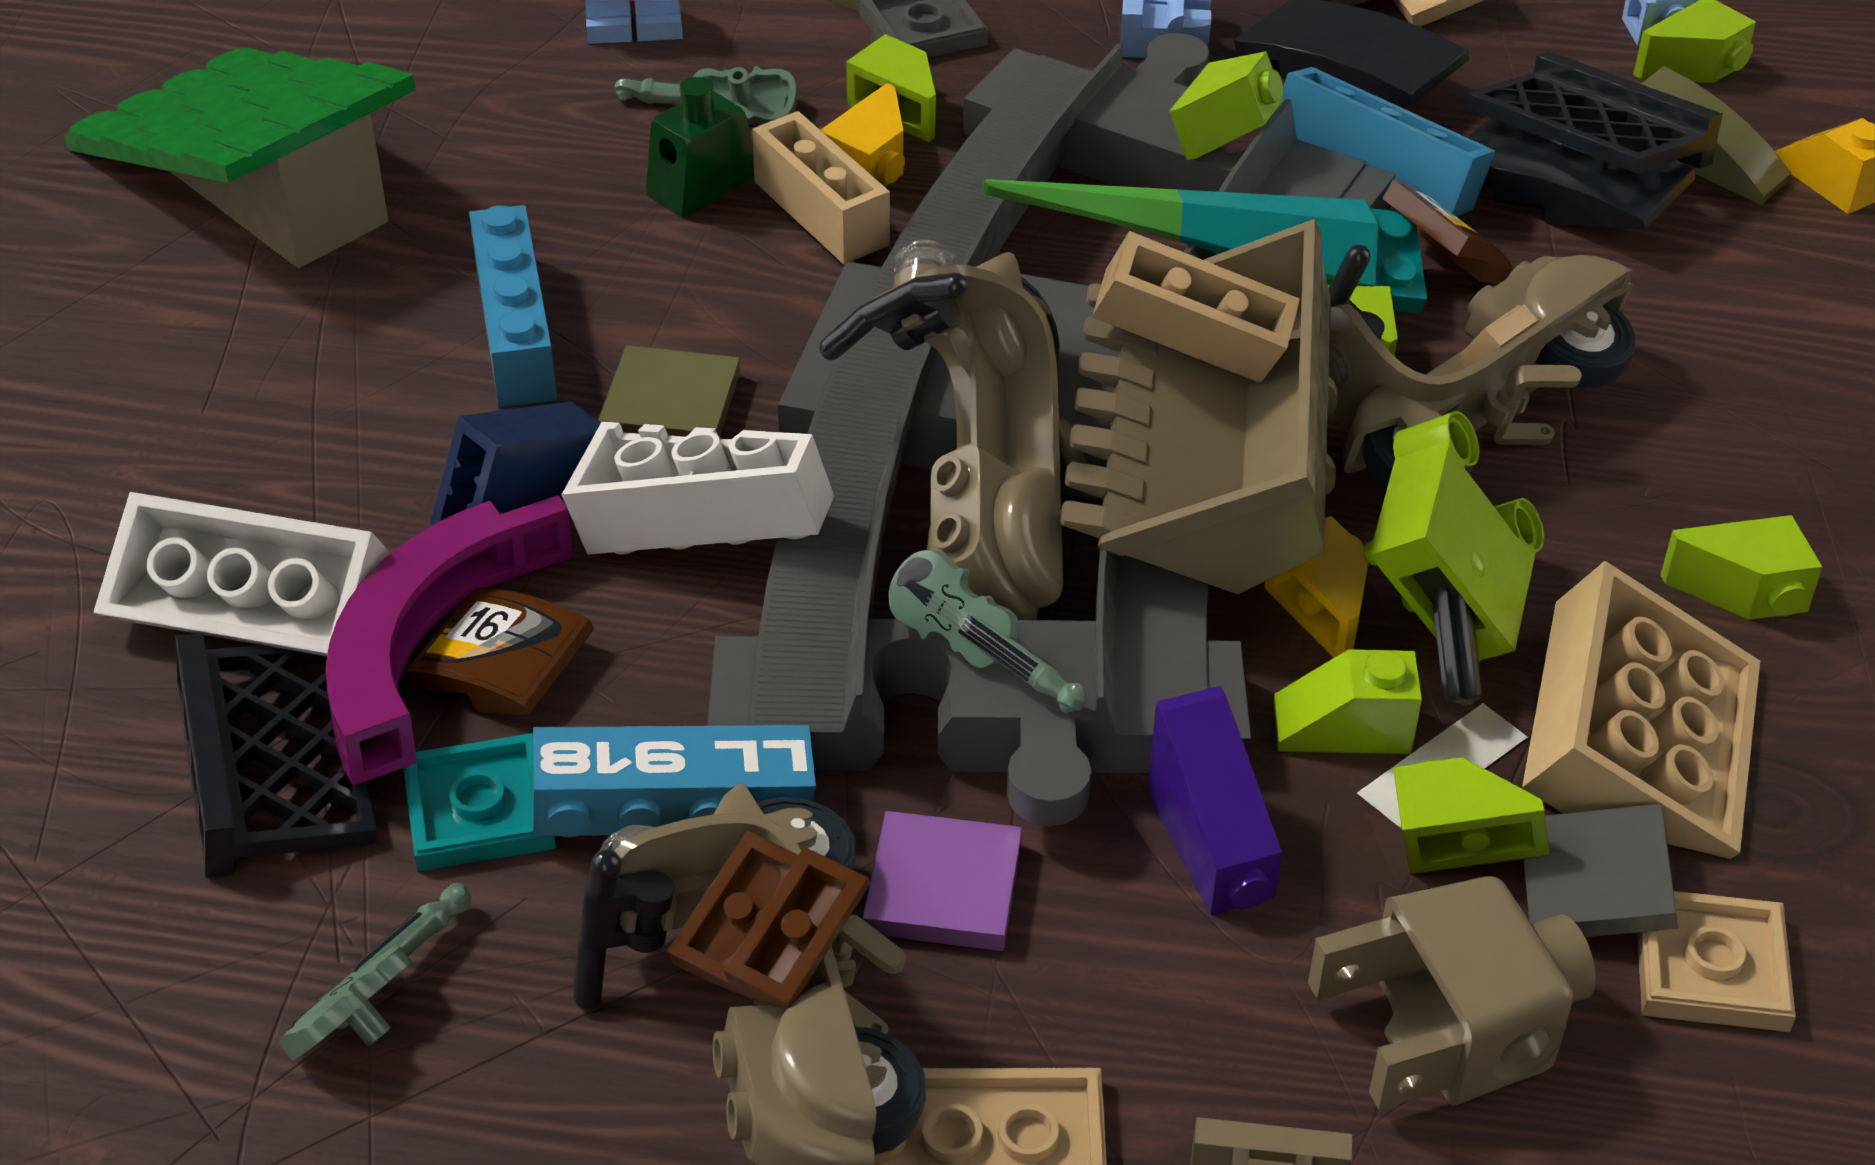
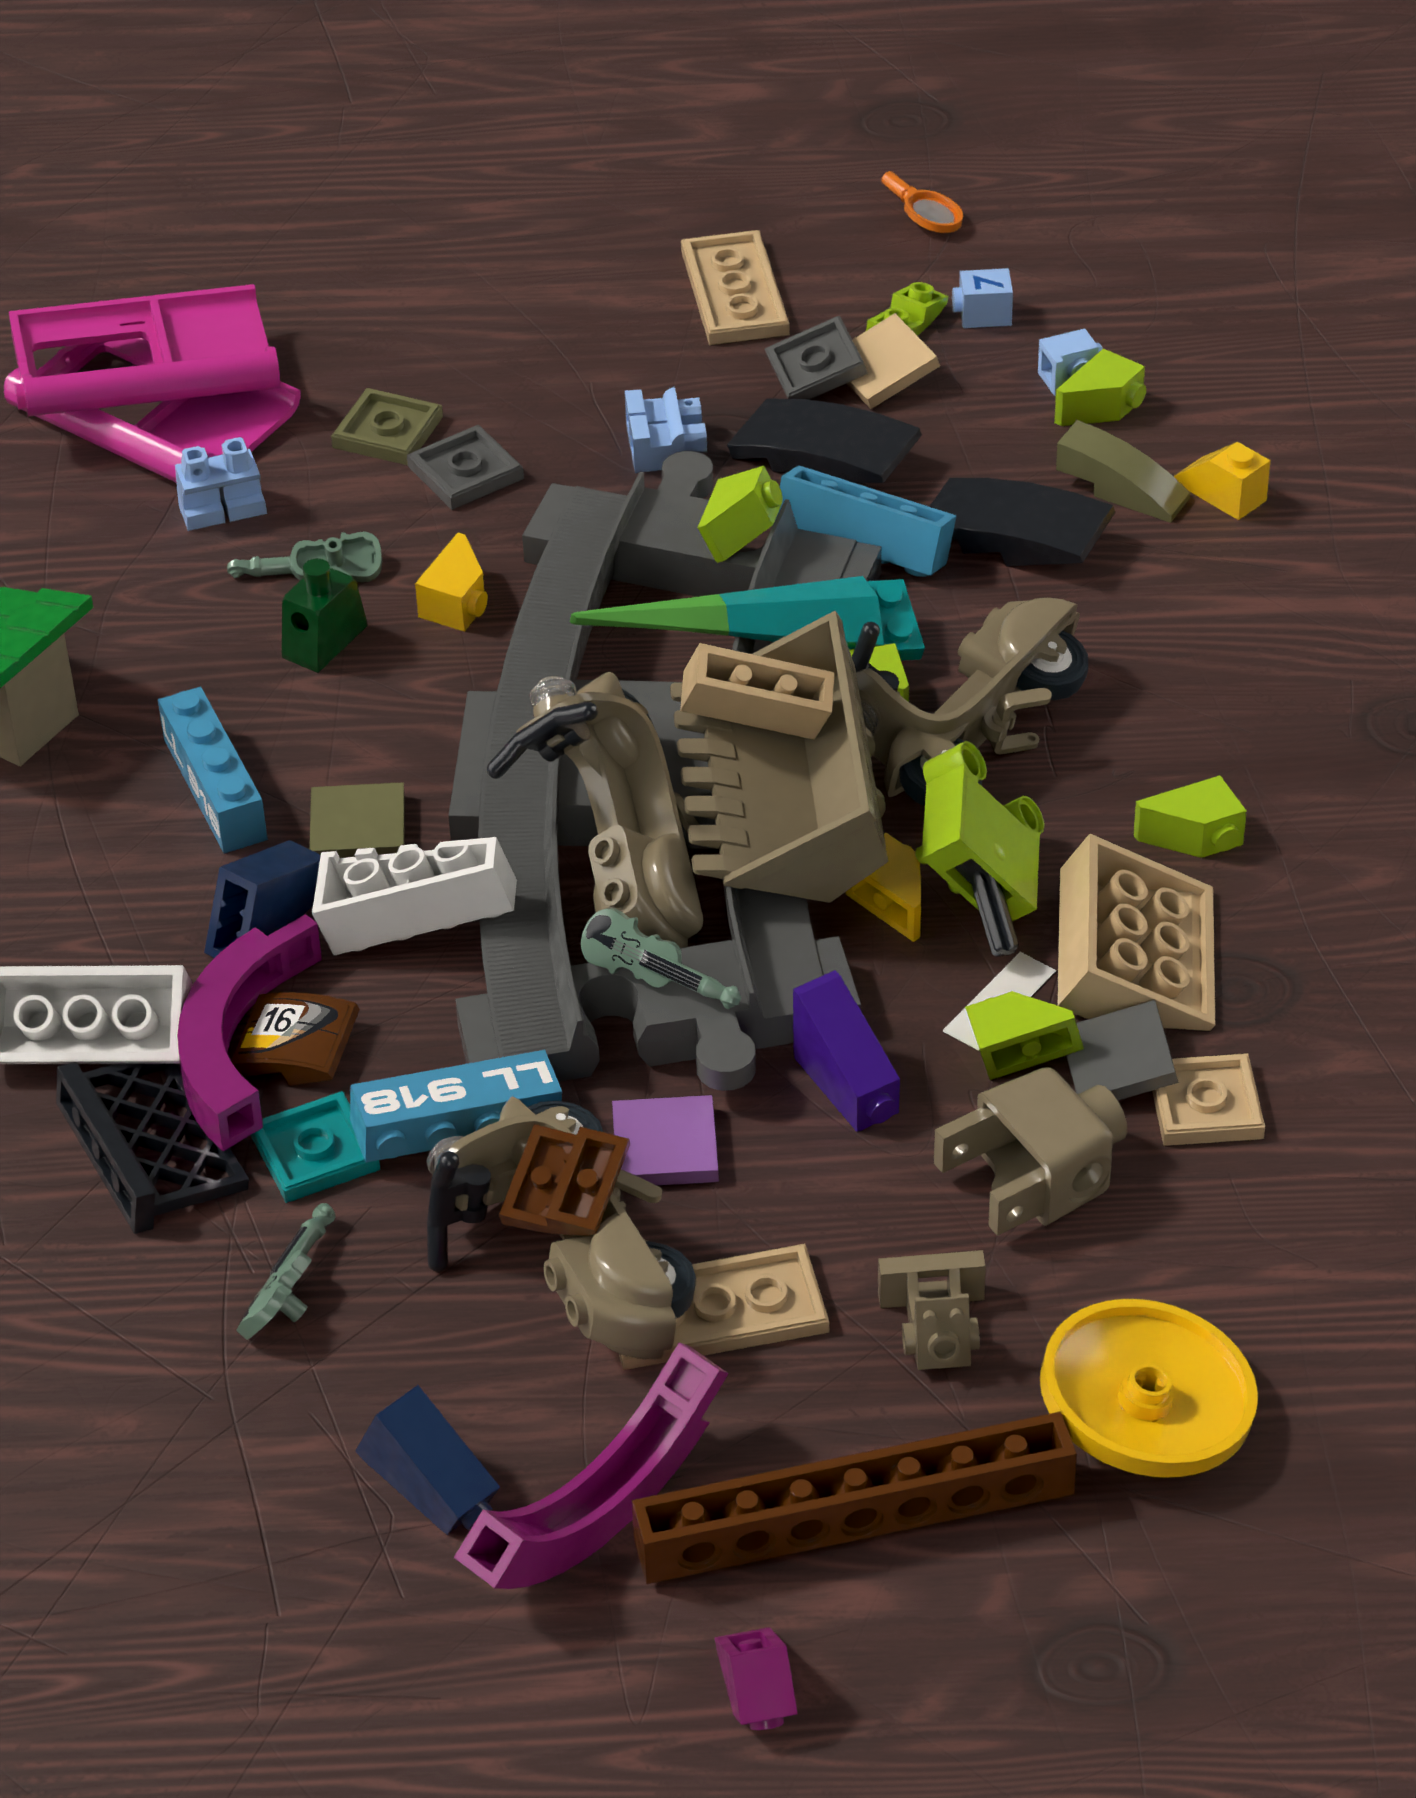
camera: 10 degrees left, 0 degrees up
(821, 187) = (429, 631): tan brick -> none
(906, 69) = (462, 514): lime slope -> none
(1352, 705) = (927, 969): lime slope -> none
(1449, 234) = (932, 591): reddish brown slope -> none
(1498, 334) = (984, 673): tan tile -> none
(1602, 115) = (1033, 470): black fence -> none

